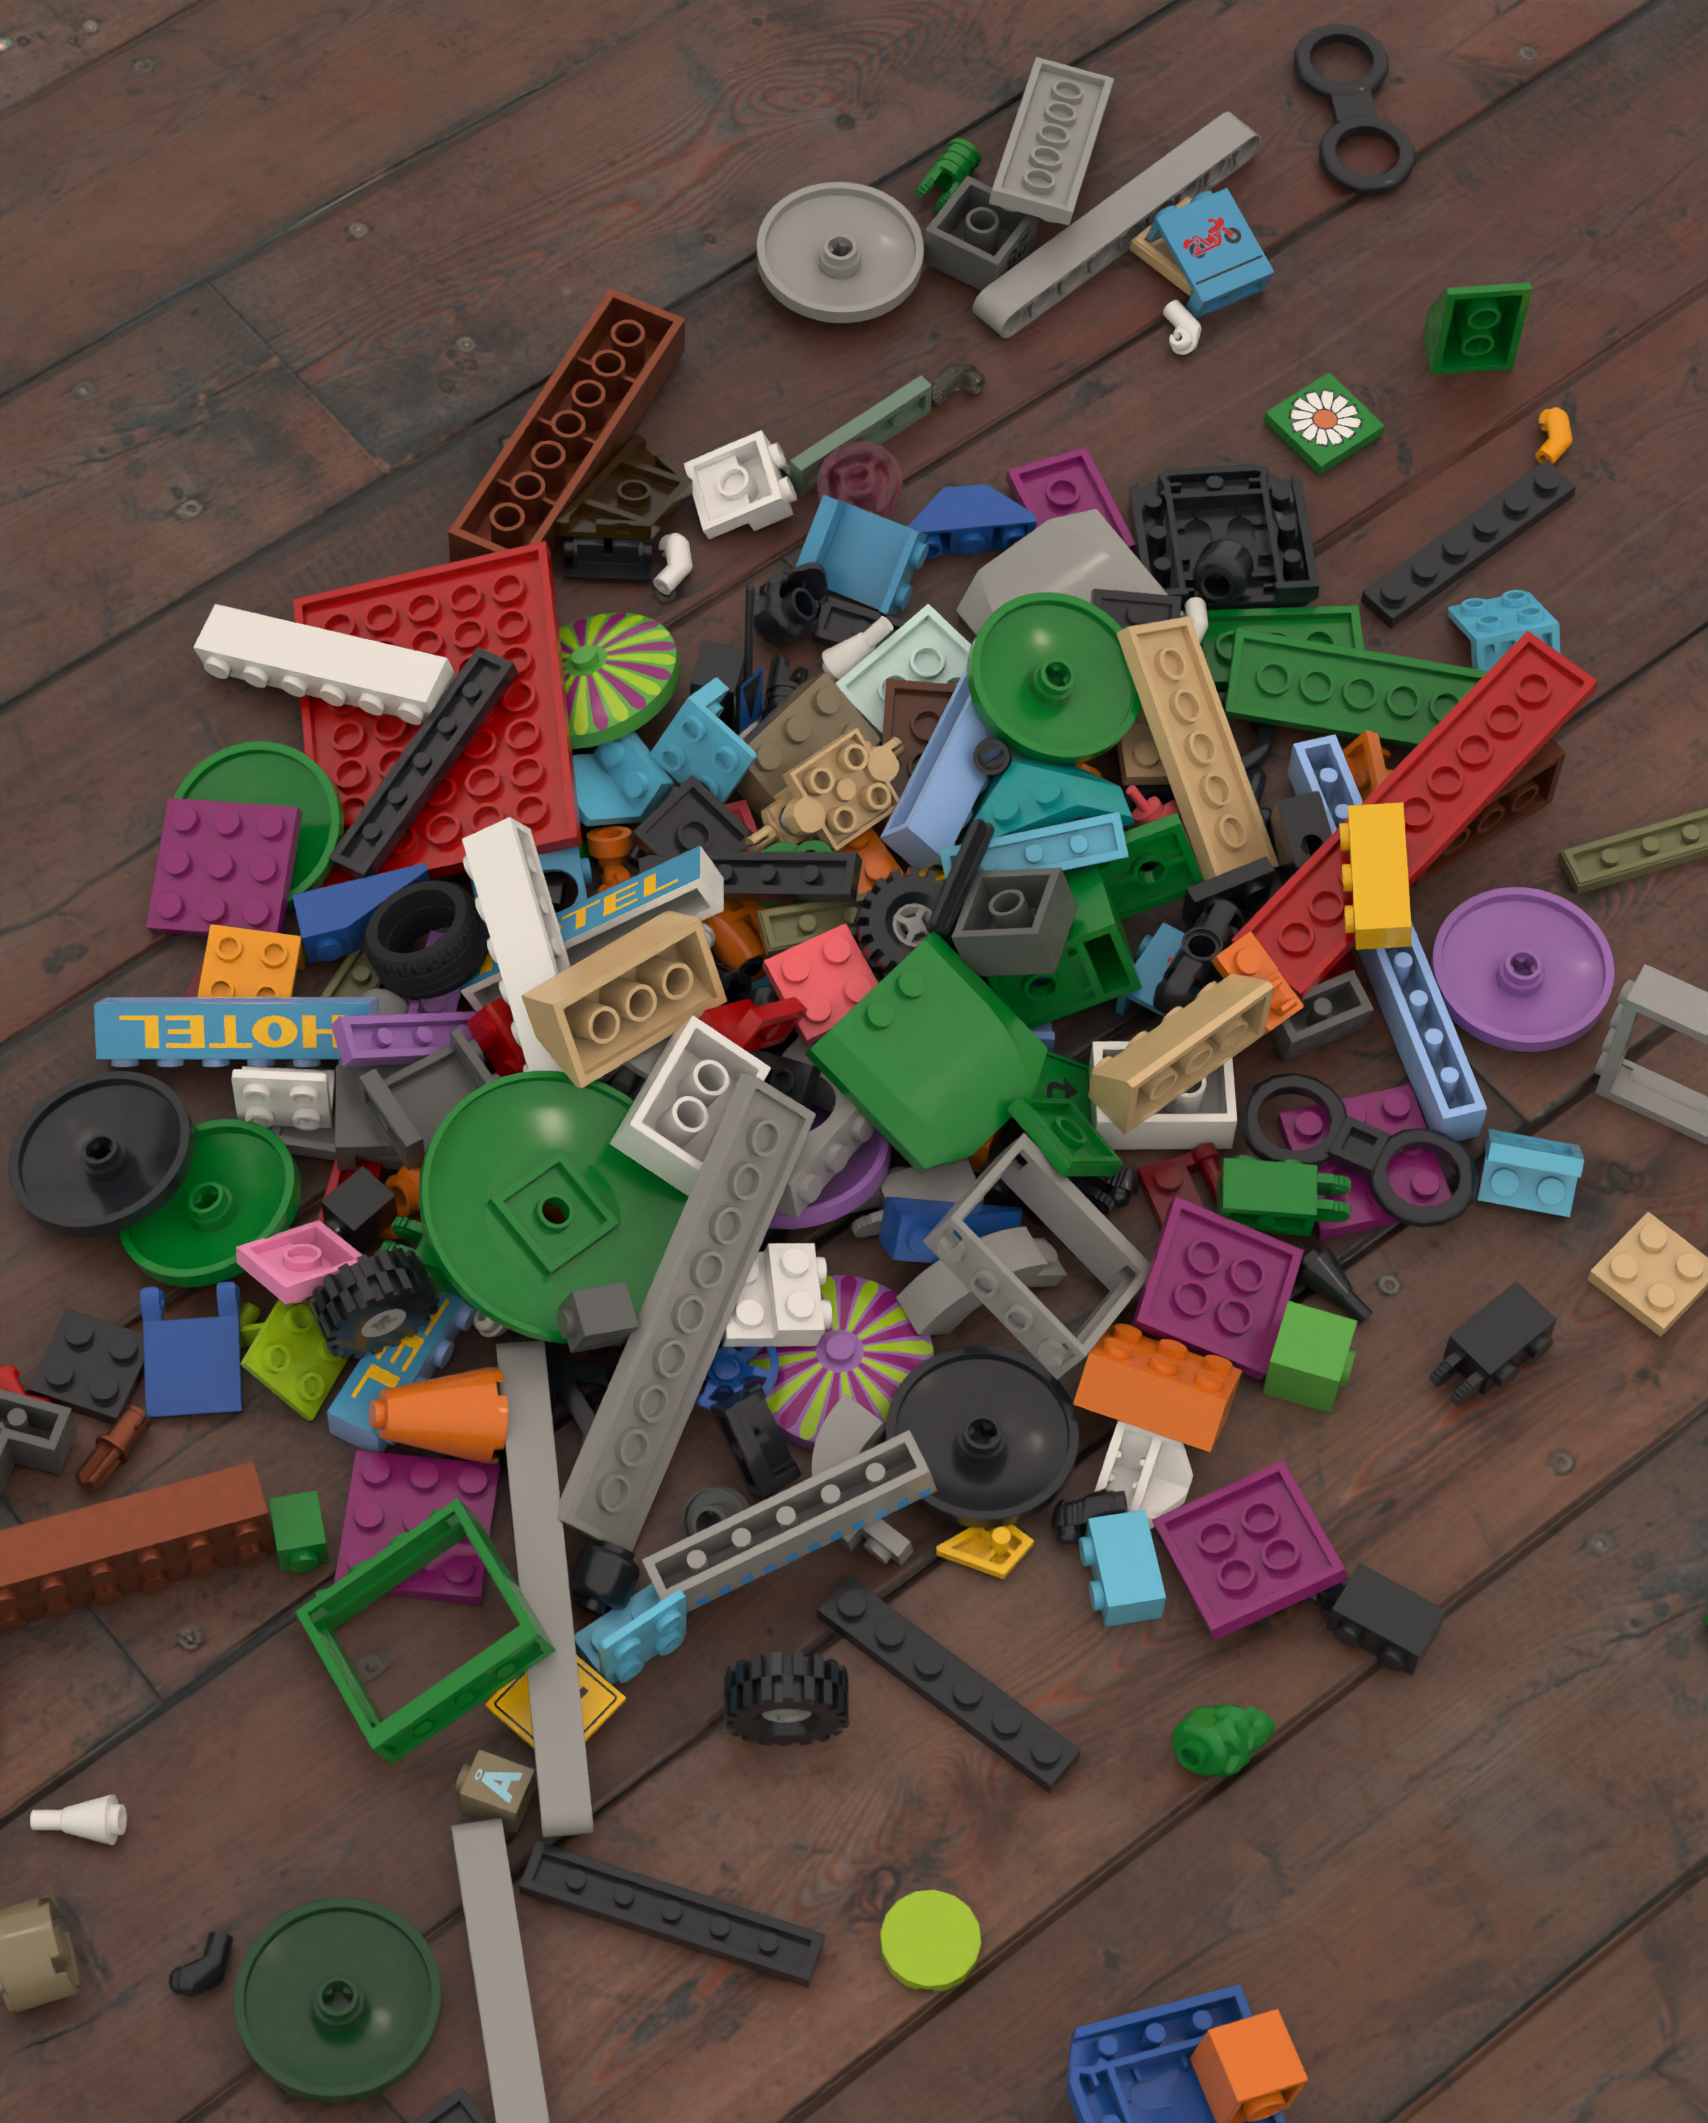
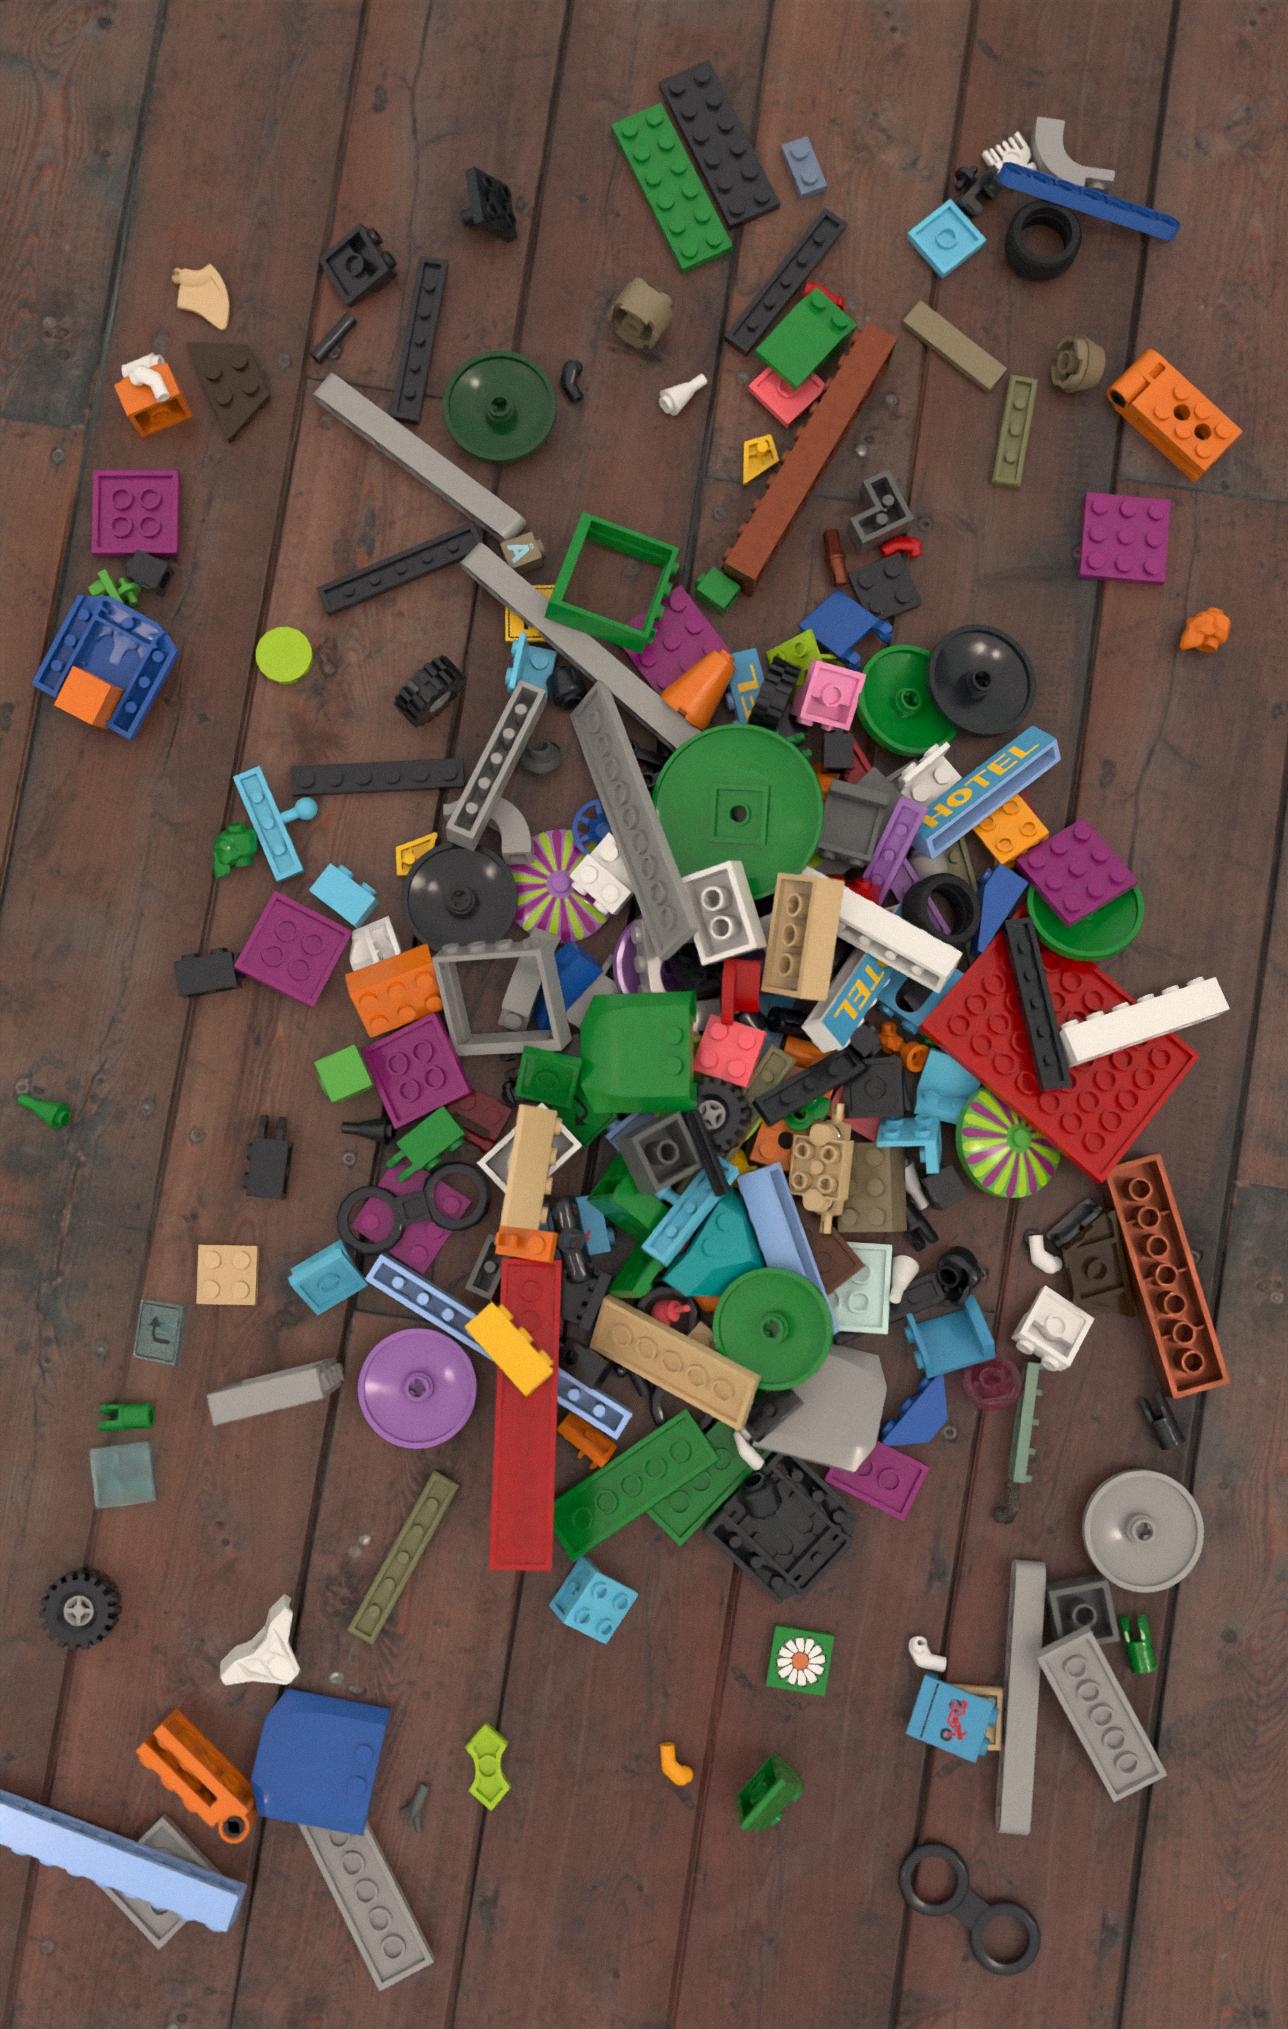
camera: 140 degrees right, 25 degrees up
(72, 1655) = (758, 457): none -> yellow piece
(597, 1317) = (665, 770): dark grey brick -> none
(714, 324) = (1163, 1425): none -> black hinge
(750, 690) = (925, 1201): black piece -> none
(755, 1440) = (556, 805): black hinge -> none
(997, 763) = (760, 1250): black hinge -> none
(1072, 1515) = (383, 907): black arm -> none
(1141, 1736) = (271, 823): none -> medium azure plate
(1468, 544) = (660, 1648): black plate -> none

